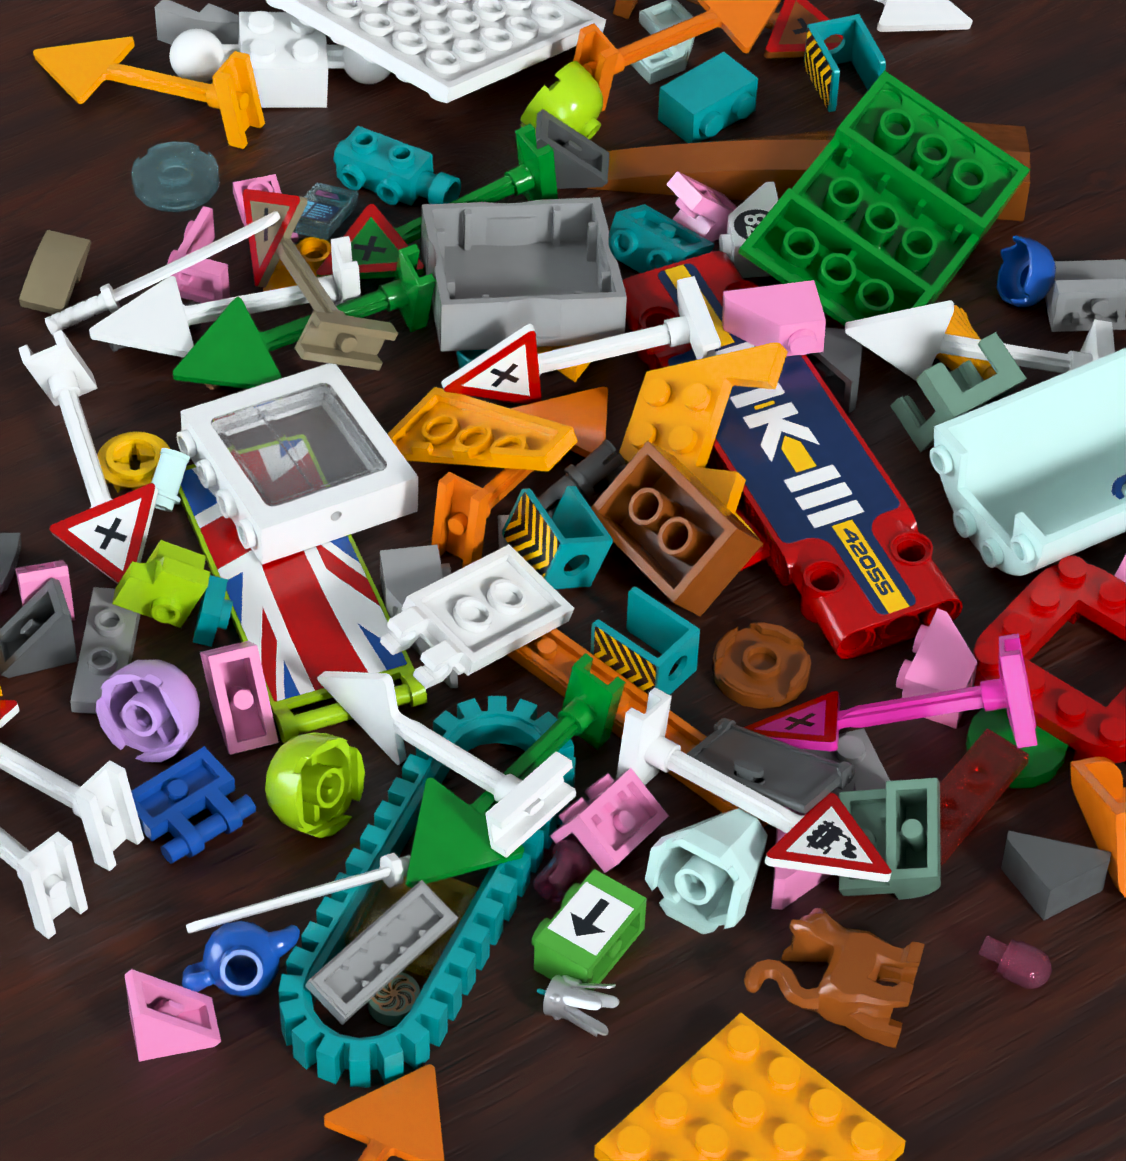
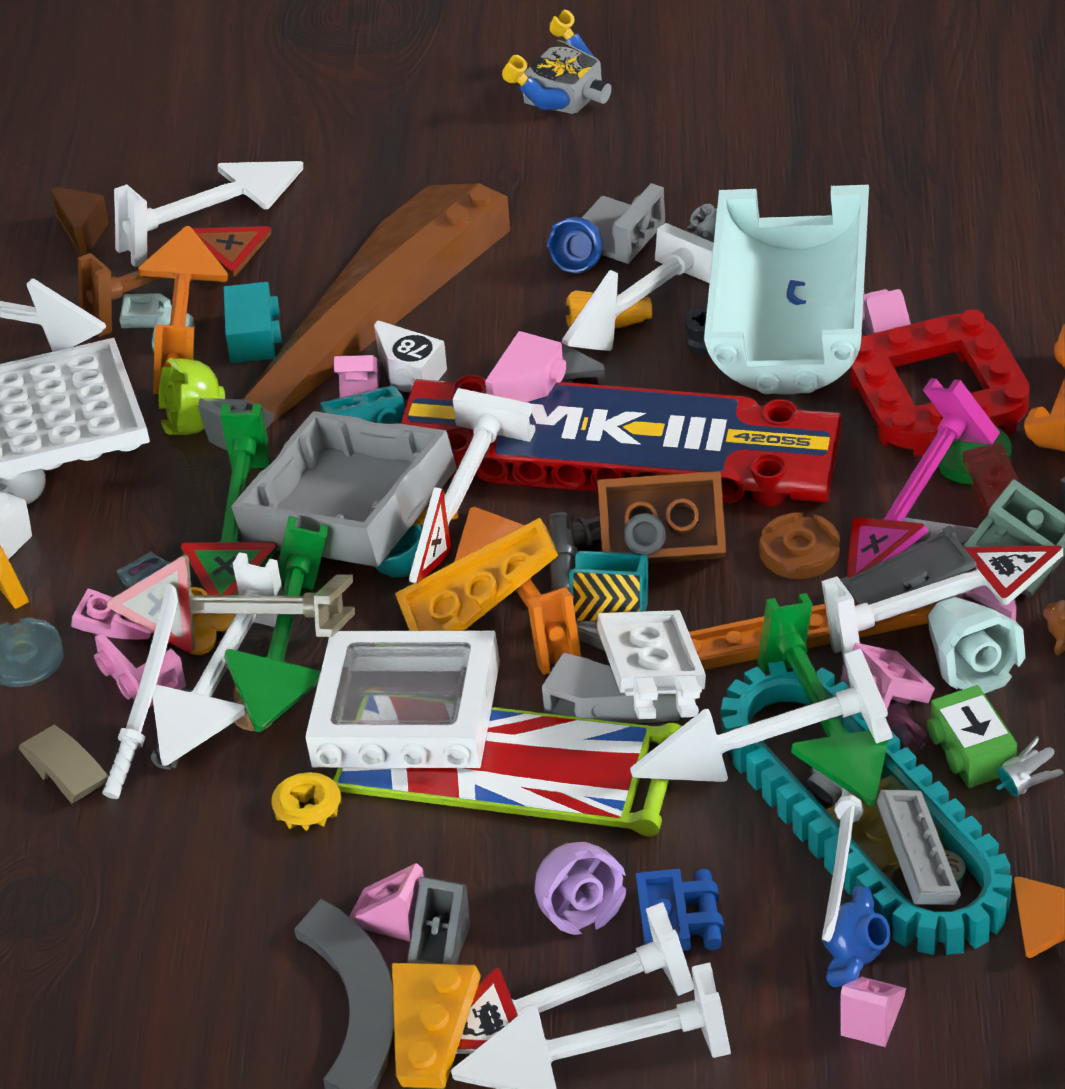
camera: 50 degrees left, 5 degrees down
(104, 650) = (489, 900): light grey plate -> none
(112, 529) = (365, 844): white piece -> none
(164, 585) = (463, 824): lime brick -> none
(168, 478) = (350, 785): light aqua pin -> none
(213, 611) = (503, 815): teal plate -> none
(239, 696) = (596, 820): bright pink slope -> none
(314, 783) = (721, 825): lime cylinder -> none
(392, 169) = (147, 522): teal brick -> none
(629, 522) = (644, 534): none -> dark grey tile
(658, 628) = (743, 584): teal piece -> none
(684, 407) = (552, 463): light orange wing -> none
(856, 47) = (288, 236): teal piece -> none
(886, 207) = (465, 271): green slope -> none
(939, 665) = (884, 453): bright pink slope -> none
(958, 391) = (674, 324): sand green panel -> none

